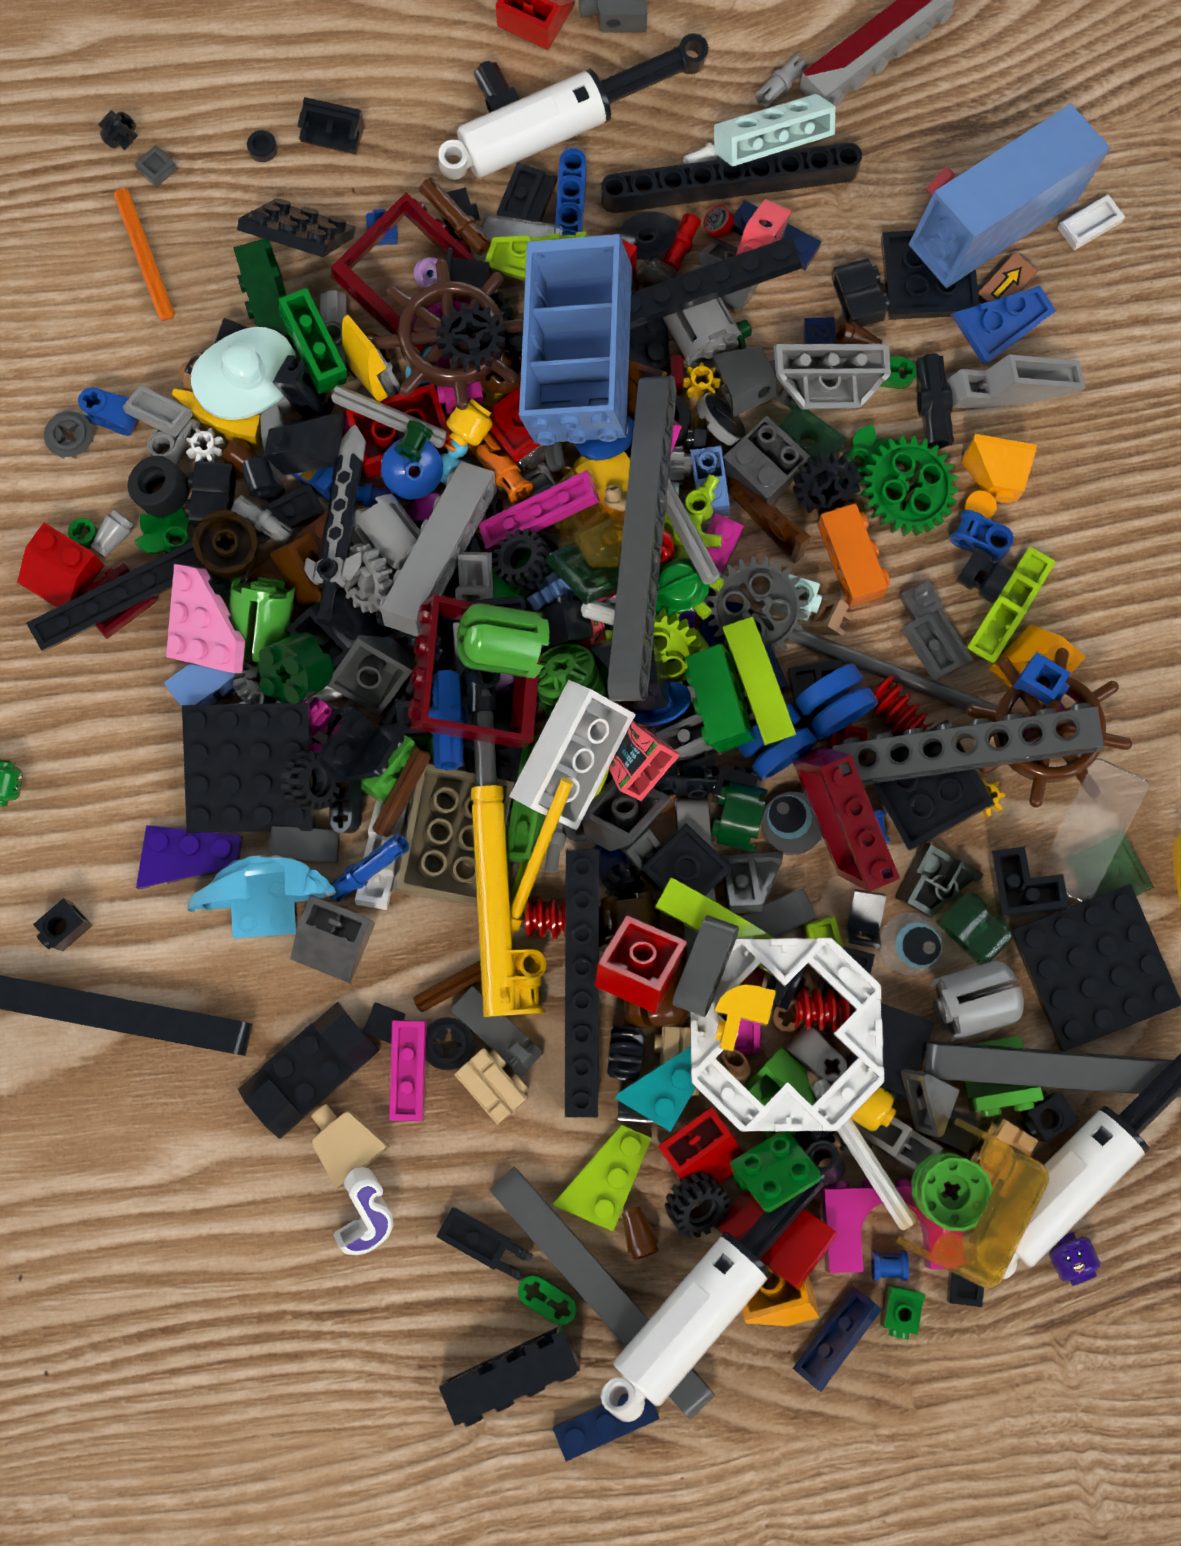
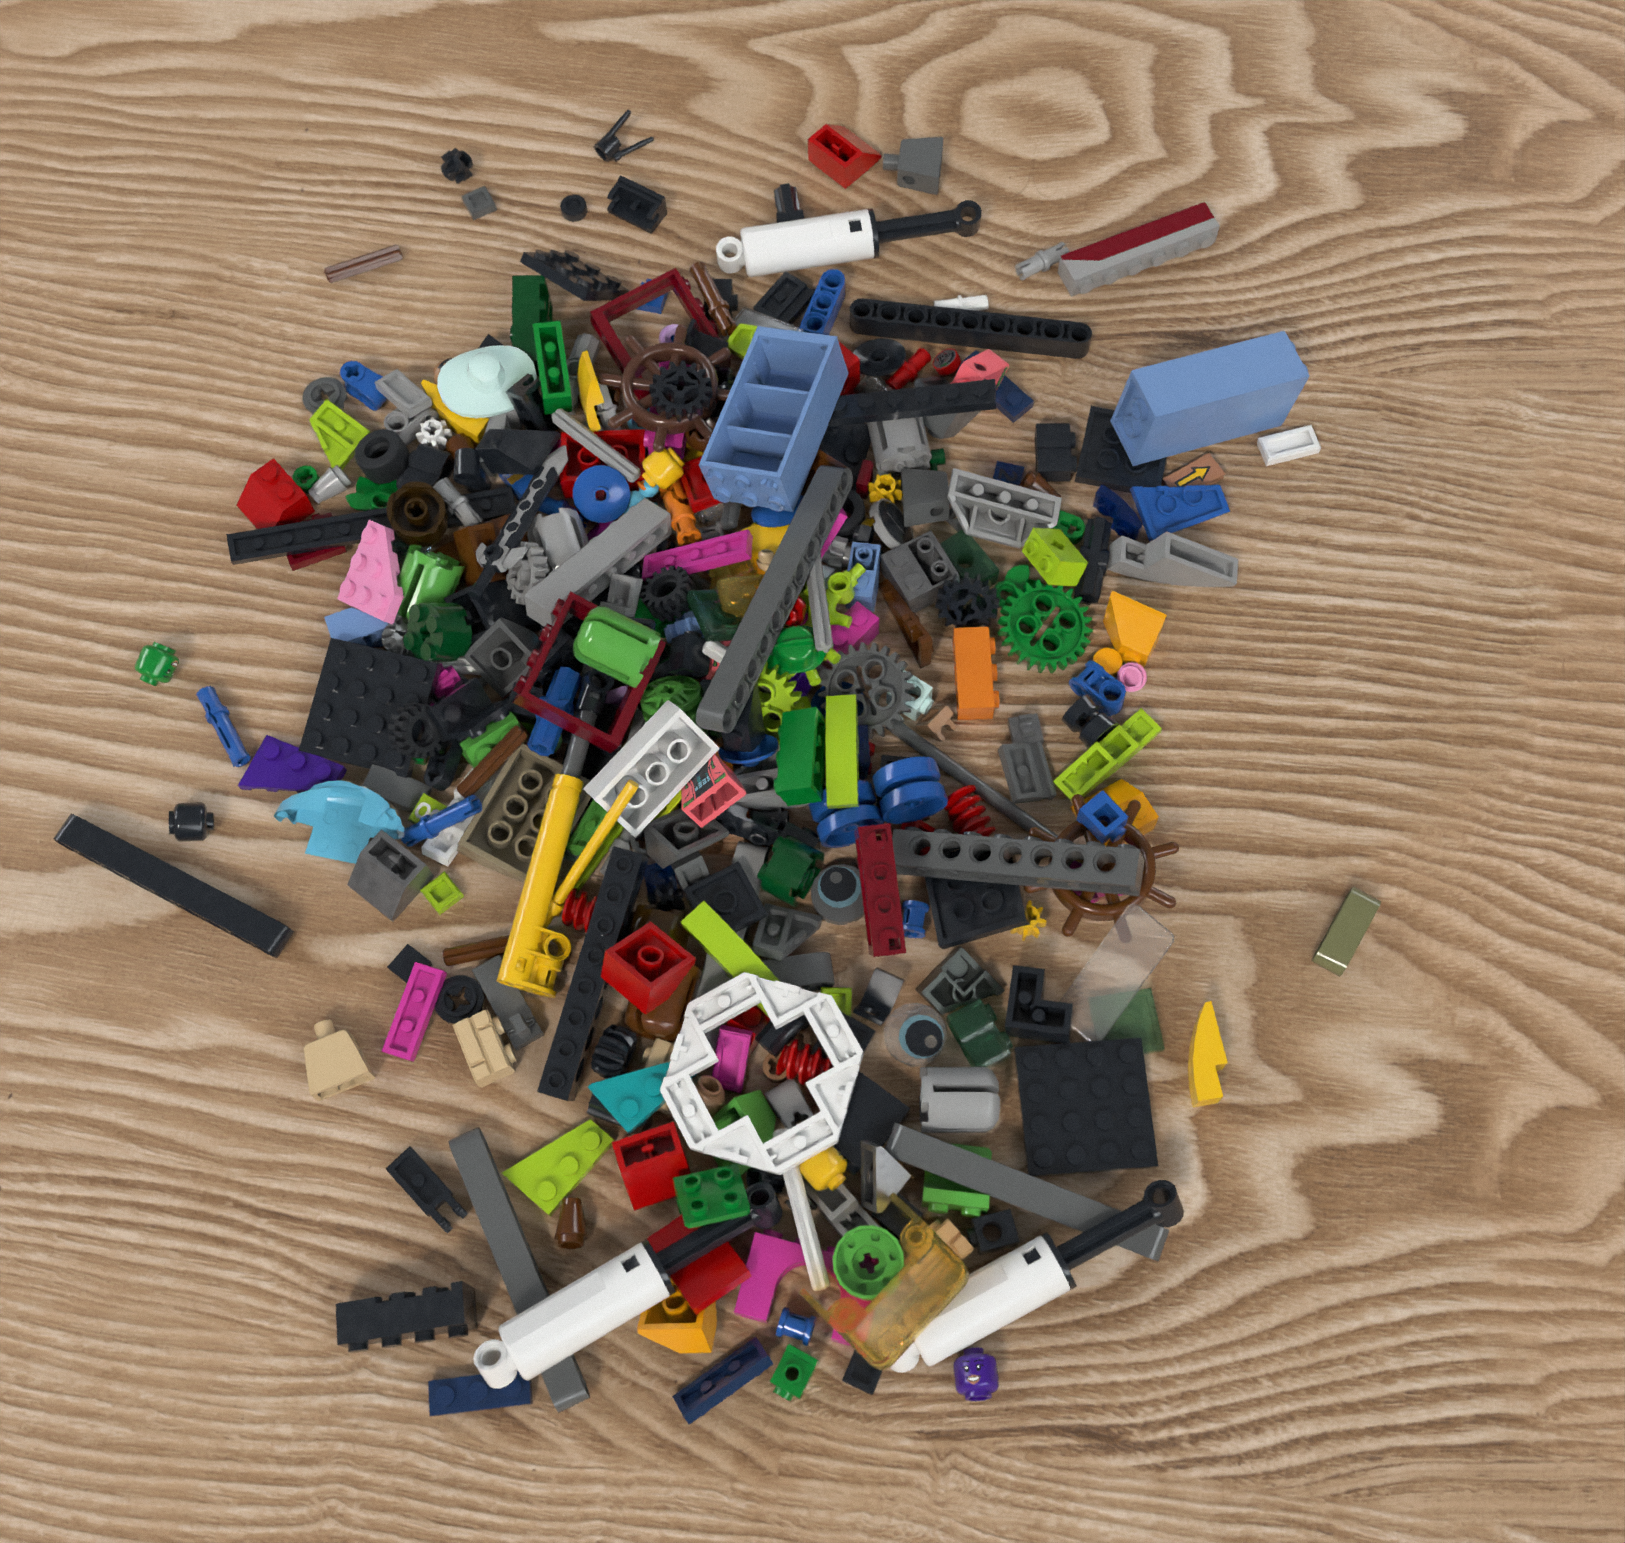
camera: 20 degrees right, 10 degrees down
(54, 270) = (363, 263): none -> axle
(75, 925) = (152, 791): black brick -> none
(87, 819) = (219, 717): none -> blue pin
(99, 473) = (337, 433): none -> lime wing
(101, 941) = (190, 822): none -> black head
(144, 254) = (442, 270): orange axle -> none
(276, 62) = (609, 145): none -> black plant
(307, 1070) = (327, 988): black piece -> none
(343, 856) = (425, 806): none -> lime tile
(376, 1221) = (336, 1124): white animal -> none
(389, 938) = (442, 893): none -> lime tile
(413, 441) = (606, 468): dark green bush -> none
(543, 1307) = (472, 1254): green beam -> none
(687, 1195) = (637, 1225): black tyre -> none
(705, 965) = (706, 985): dark grey beam -> none
(744, 1003) = (724, 1028): yellow brick -> none
(774, 129) = (1019, 296): light aqua brick -> none
(899, 409) = (1054, 557): none -> lime brick
(955, 349) = (1125, 519): none -> clear blue slope
(1011, 514) = (1132, 676): none -> bright pink plate

